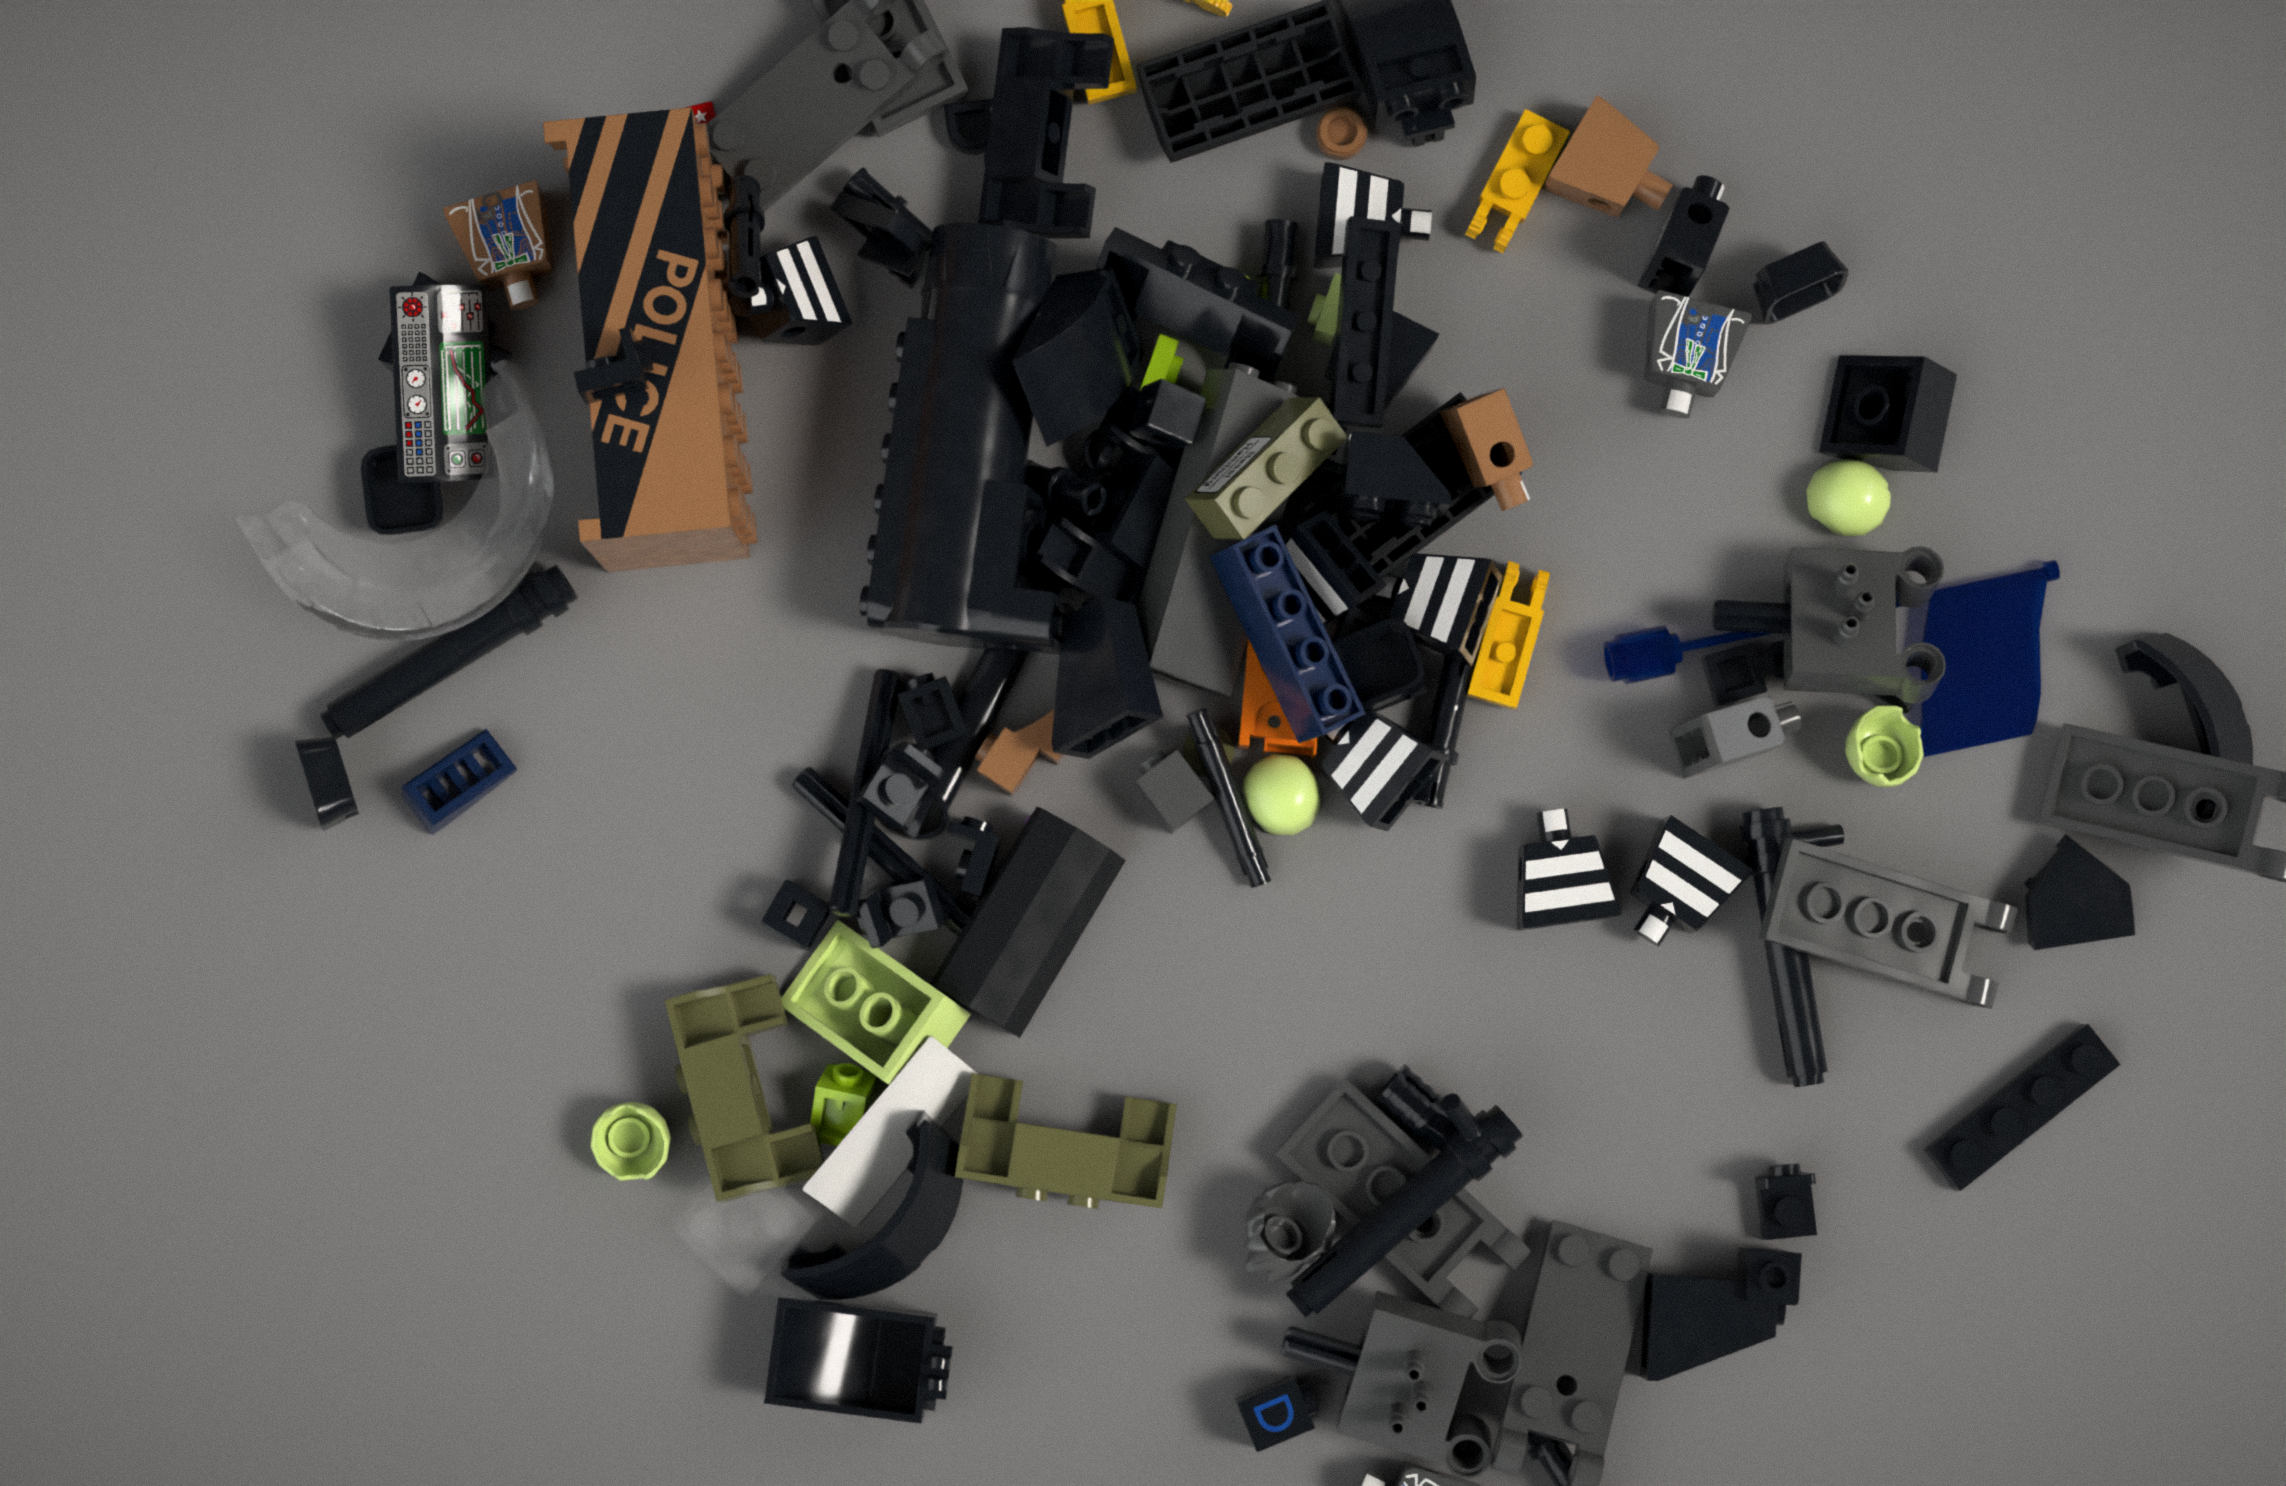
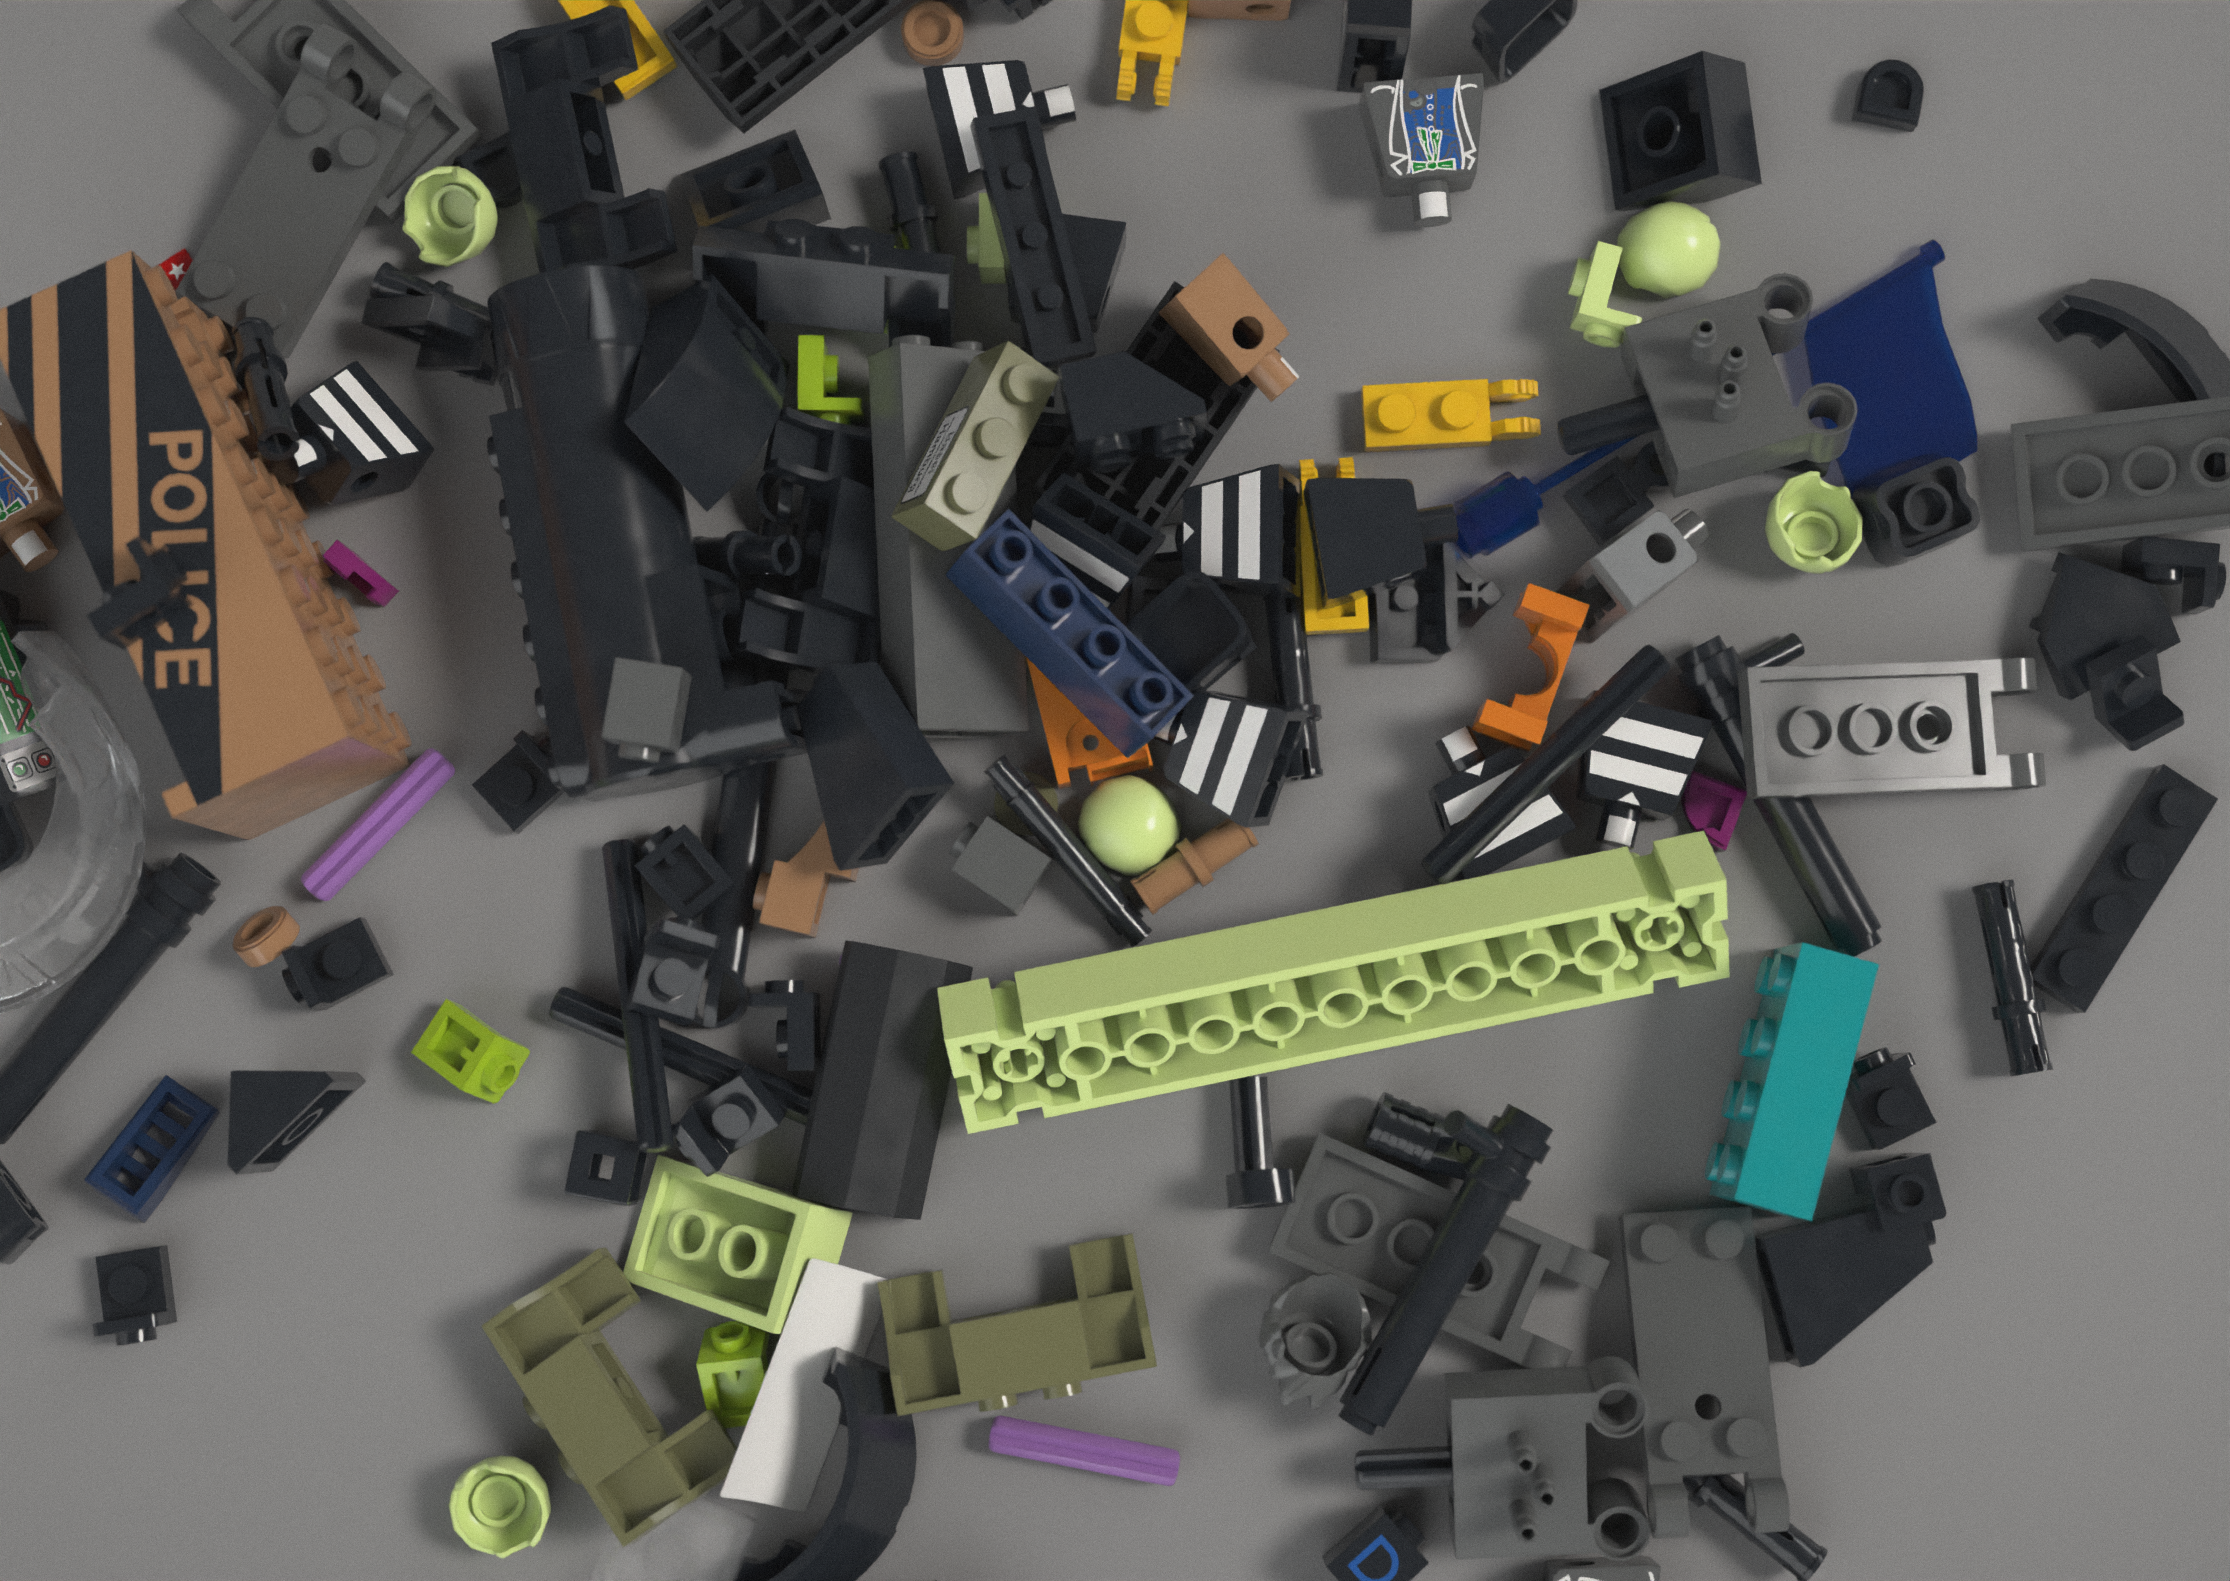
camera: 10 degrees left, 0 degrees up
(408, 886) = (135, 1294): none -> black bracket
(569, 785) = (279, 1111): none -> black slope
(598, 650) = (265, 936): none -> medium nougat tile
(643, 691) = (335, 966): none -> black bracket
(711, 594) = (377, 824): none -> medium lavender axle
(723, 792) = (470, 1053): none -> lime bracket
(762, 399) = (359, 573): none -> magenta tile
(831, 600) = (520, 782): none -> black bracket
(924, 149) = (449, 215): none -> yellowish green hair
(953, 581) = (646, 709): none -> dark grey brick
(1083, 1255) = (1084, 1450): none -> medium lavender axle
(1165, 208) = (757, 186): none -> black slope
(1167, 415) = (838, 426): black piece -> none
(1284, 1096) = (1255, 1180): none -> black piece
(1320, 840) = (1193, 864): none -> medium nougat pin
(1399, 967) = (1336, 981): none -> yellowish green brick
(1542, 638) = (1370, 535): none -> black torso
(1564, 698) = (1430, 613): none -> black slope
(1614, 858) = (1545, 765): none -> black axle
(1630, 563) = (1443, 414): none -> yellow hinge
(1657, 756) = (1553, 626): none -> orange piece
(1716, 1162) = (1791, 1079): none -> teal brick
(1730, 936) = (1712, 808): none -> magenta tile
(1779, 506) = (1592, 285): none -> yellowish green bracket
(1914, 1146) = (2012, 978): none -> black pin
(1966, 762) = (1915, 508): none -> black piece
(2061, 437) = (1890, 96): none -> black tile
(2081, 962) = (2130, 694): none -> black bracket
(2147, 869) = (2168, 560): none -> black bracket

